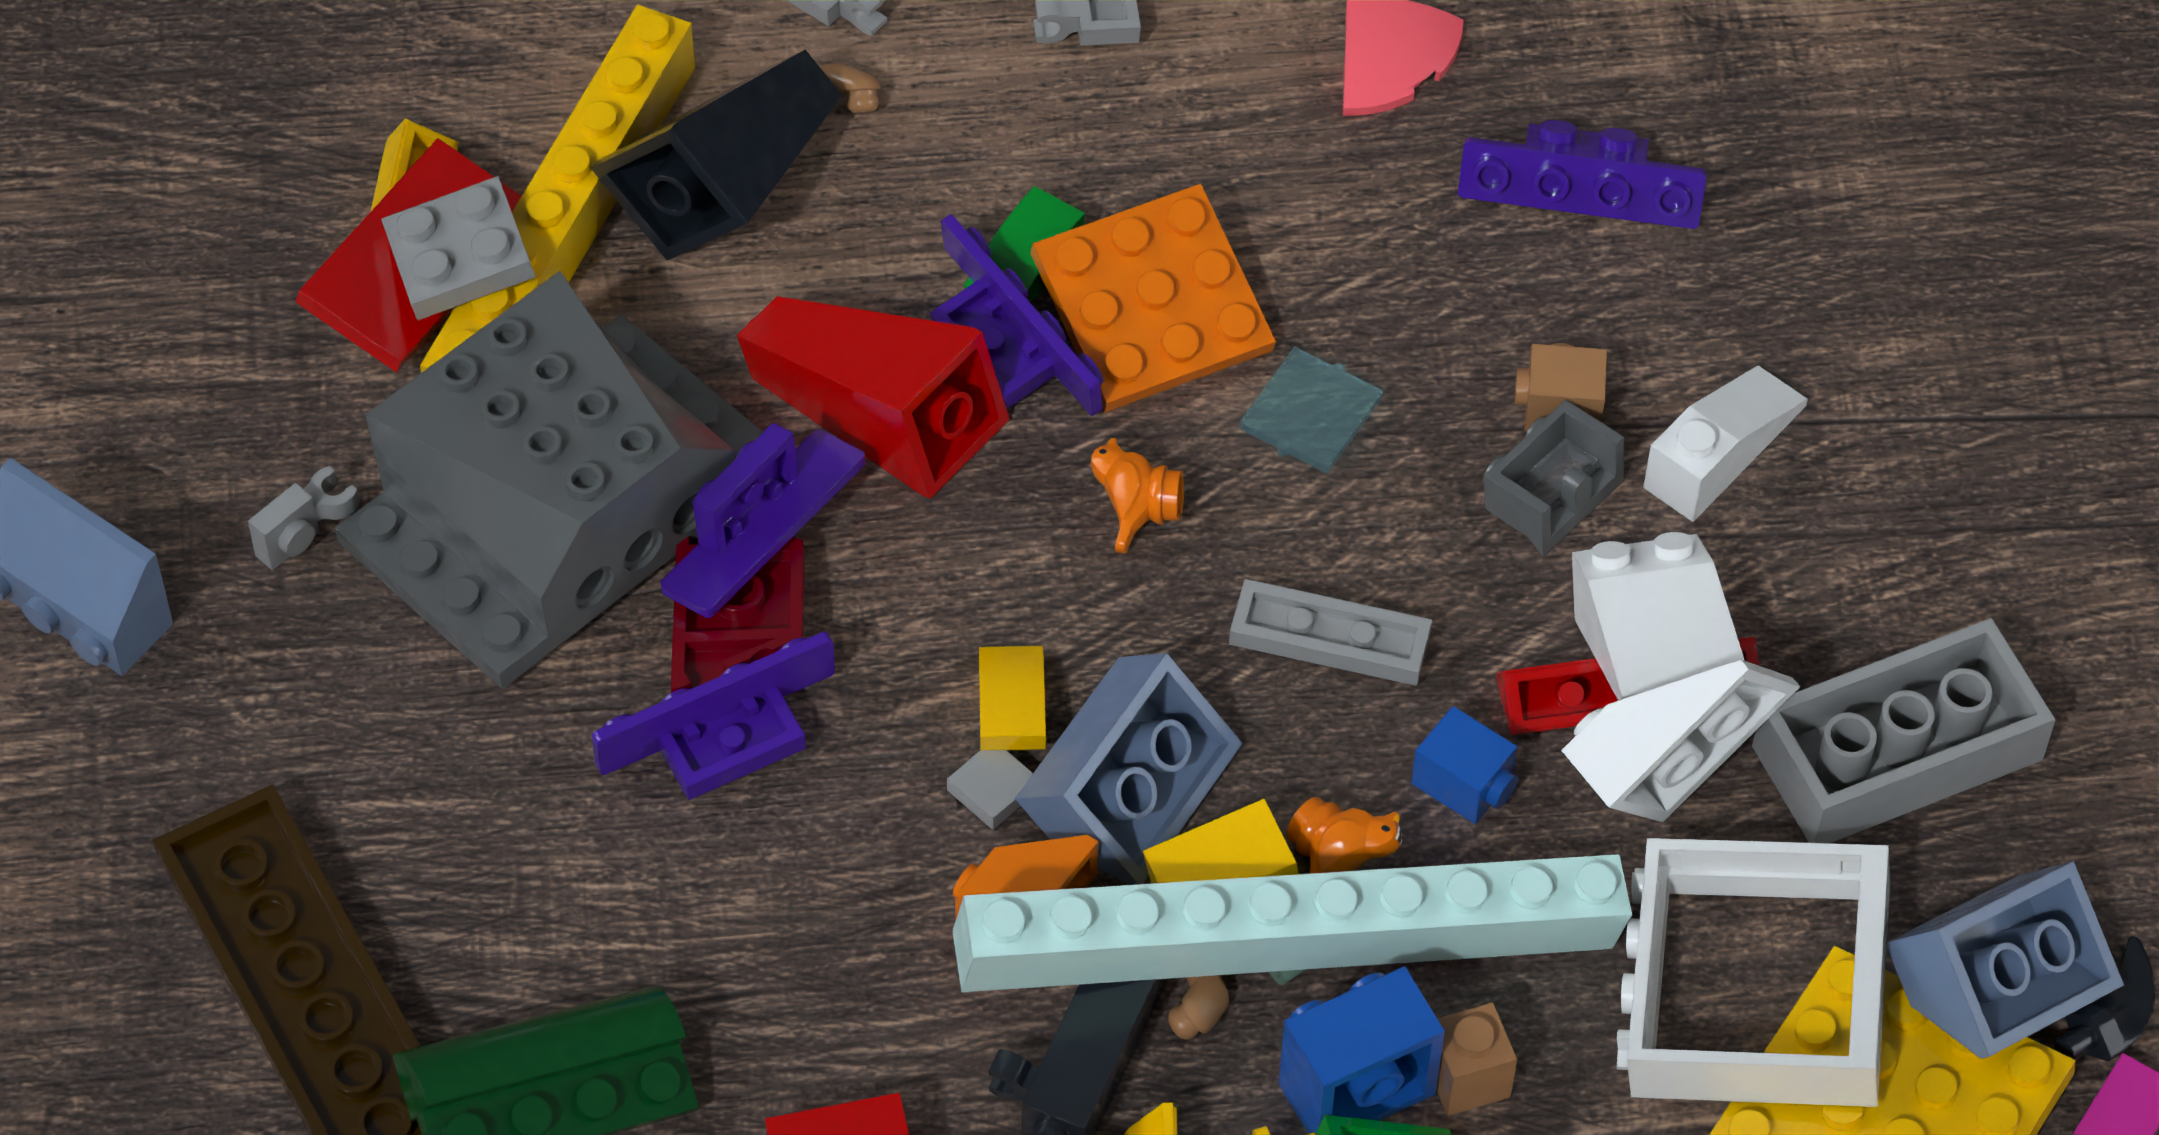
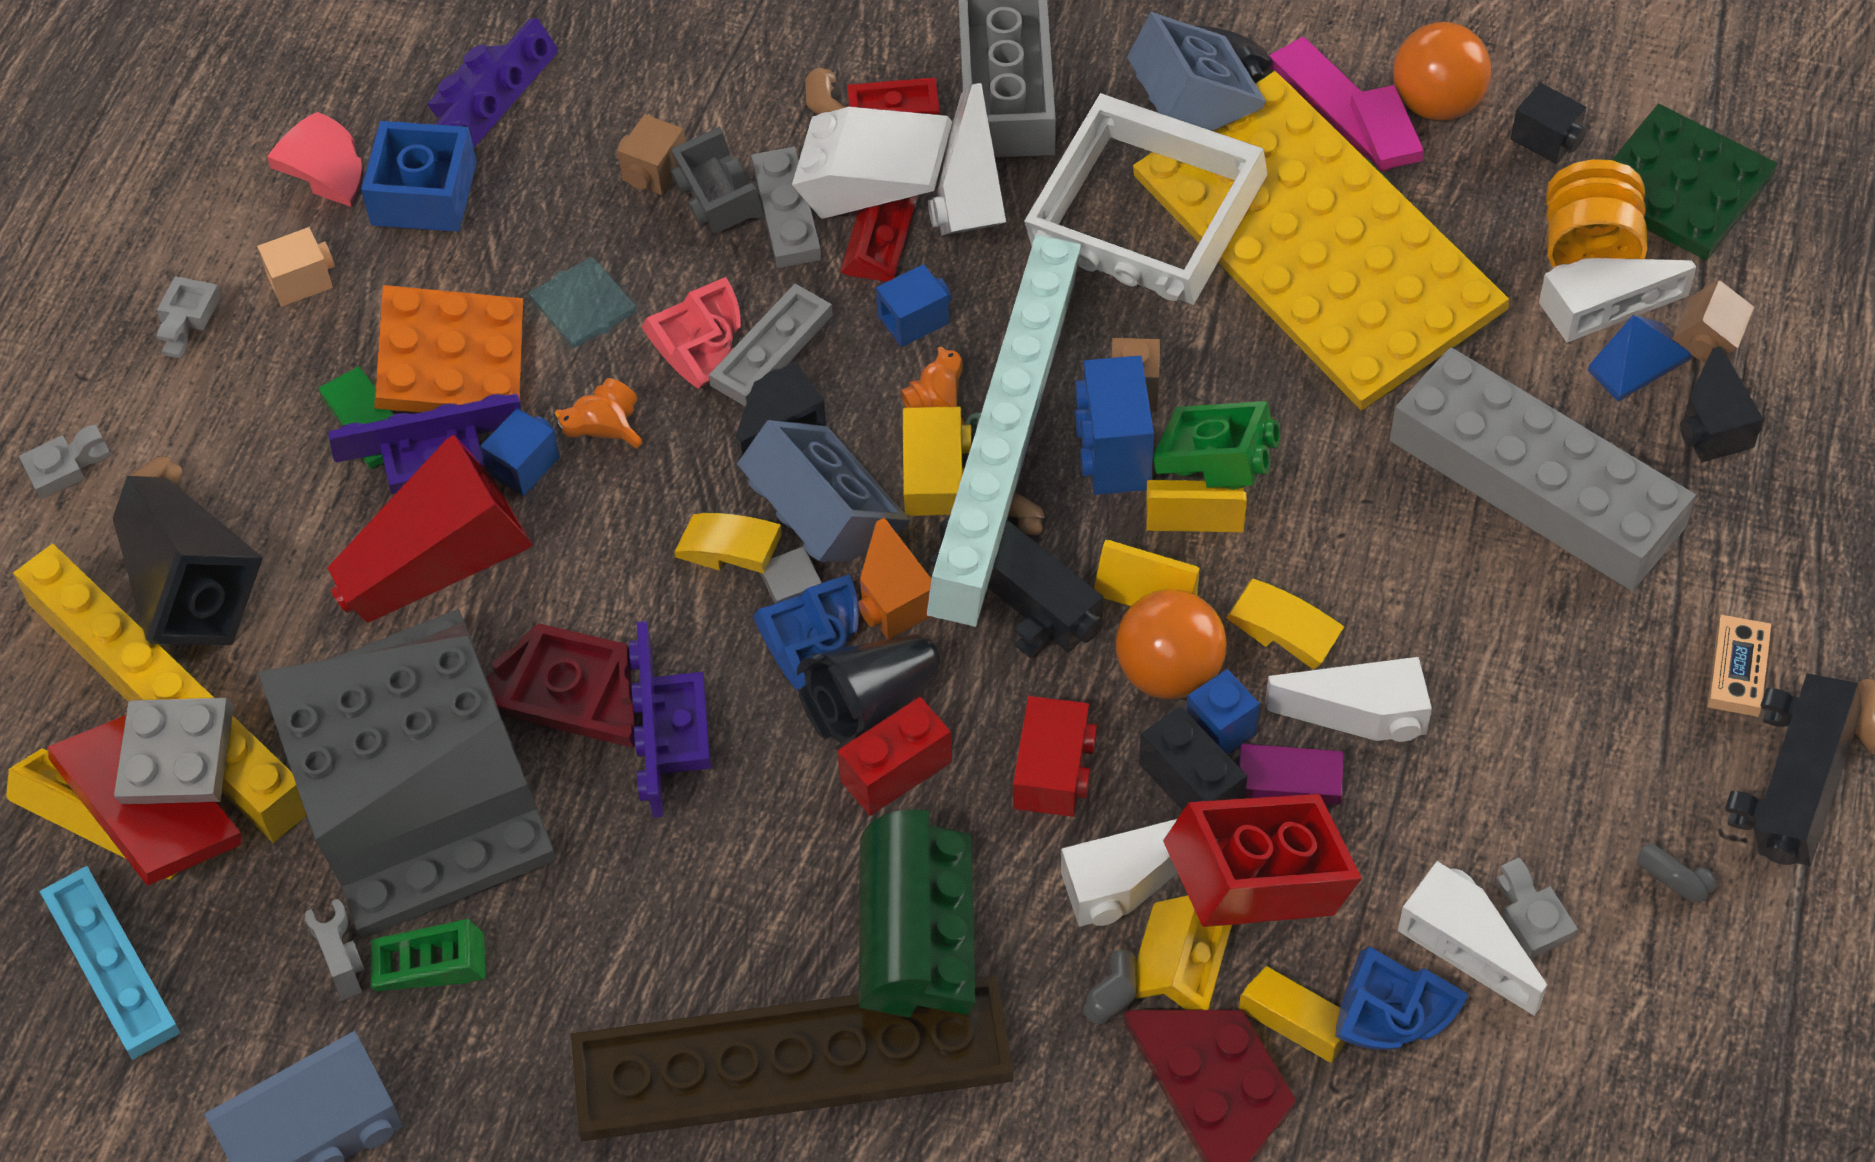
camera: 65 degrees left, 0 degrees up
(211, 316) = (110, 963): none -> medium azure plate
(353, 635) = (455, 938): none -> green slope
(756, 511) = (514, 639): dark purple bracket -> none
(768, 982) = (895, 756): none -> red brick
(856, 916) = (864, 684): none -> black cone
(918, 834) = (809, 624): none -> blue brick
(1044, 427) = (520, 451): none -> blue brick
(1207, 92) = (296, 266): none -> light nougat brick
(1233, 670) = (783, 397): none -> black slope
(1319, 546) = (697, 331): none -> coral brick
(1395, 156) = (419, 176): none -> blue brick
(1542, 581) = (784, 209): none -> light grey plate
(1718, 440) = (735, 92): white slope -> none
(1760, 542) = (819, 89): none -> medium nougat arm
(1794, 626) = (898, 95): none -> red plate

